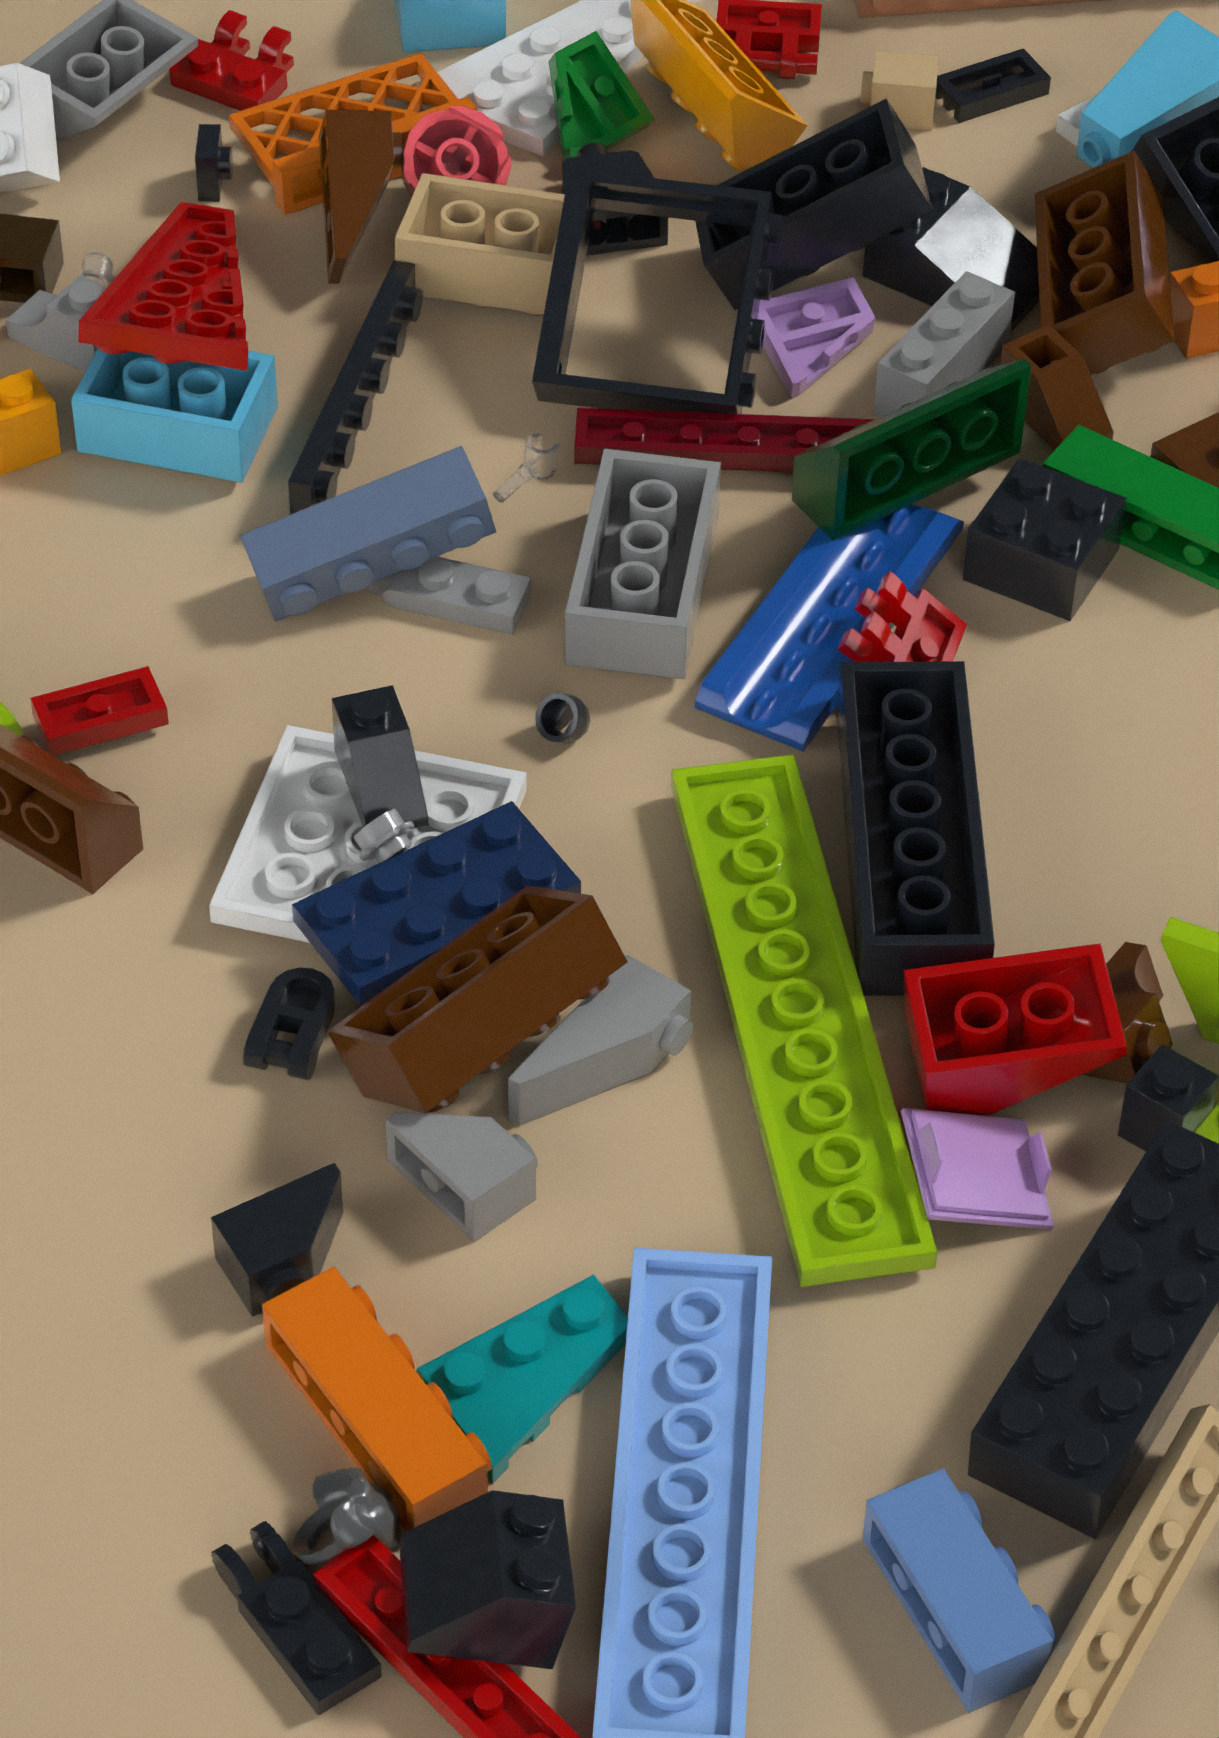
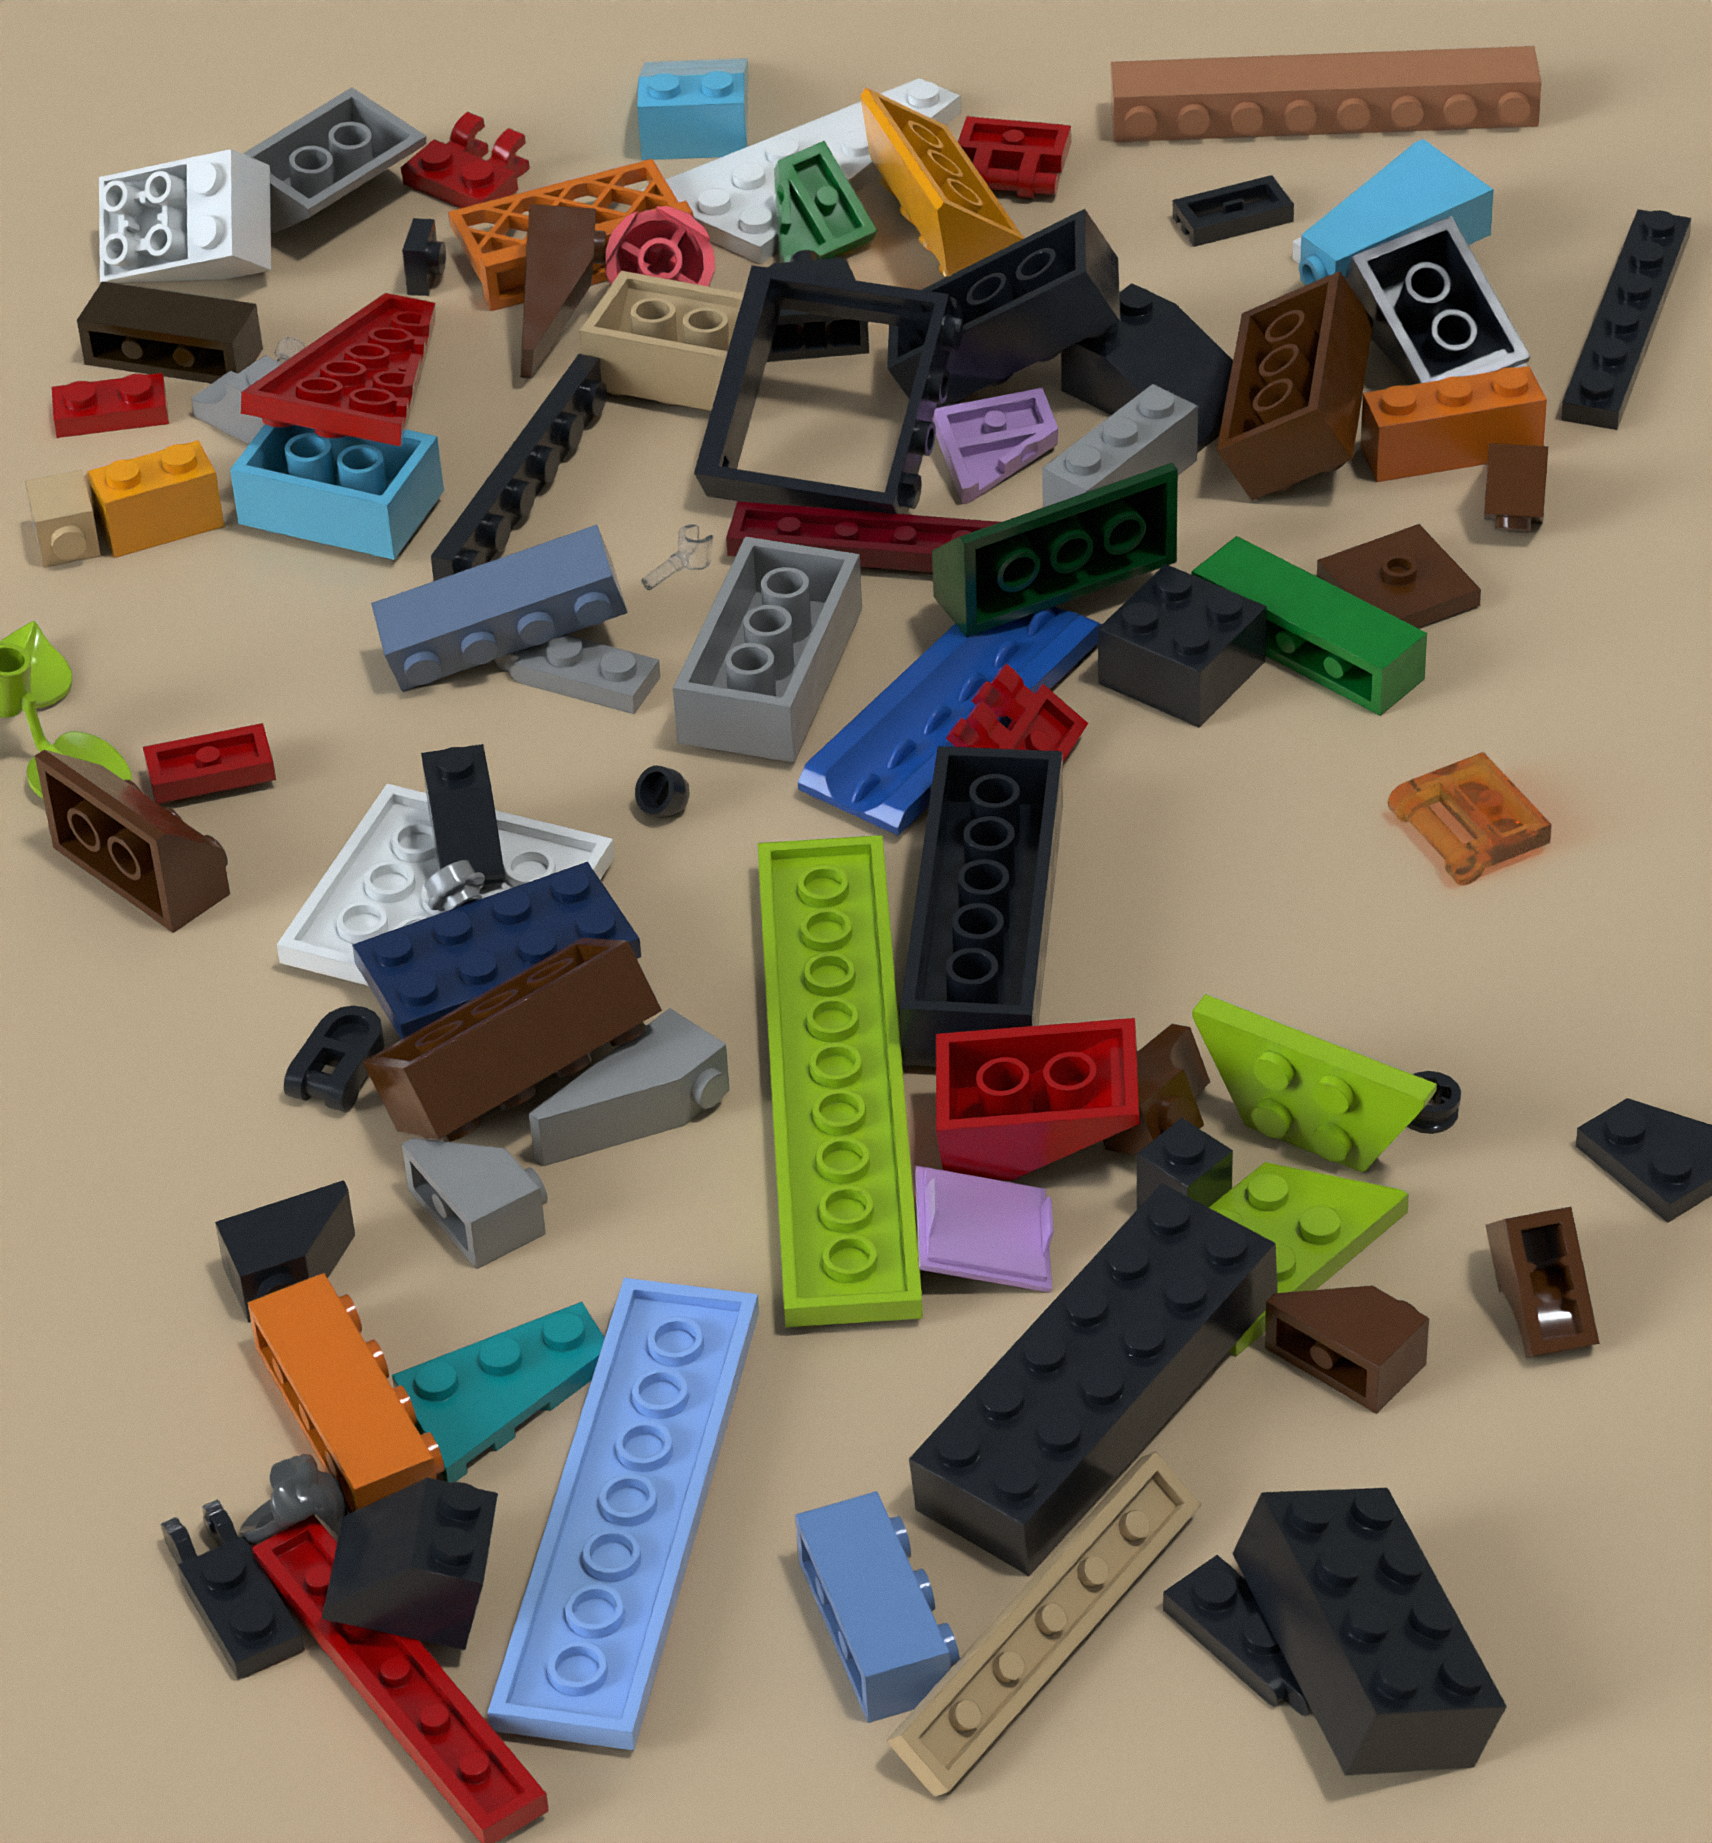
camera: 10 degrees right, 5 degrees down
(907, 83) = (1136, 211): tan brick -> none
(1059, 387) = (1221, 498): reddish brown slope -> none

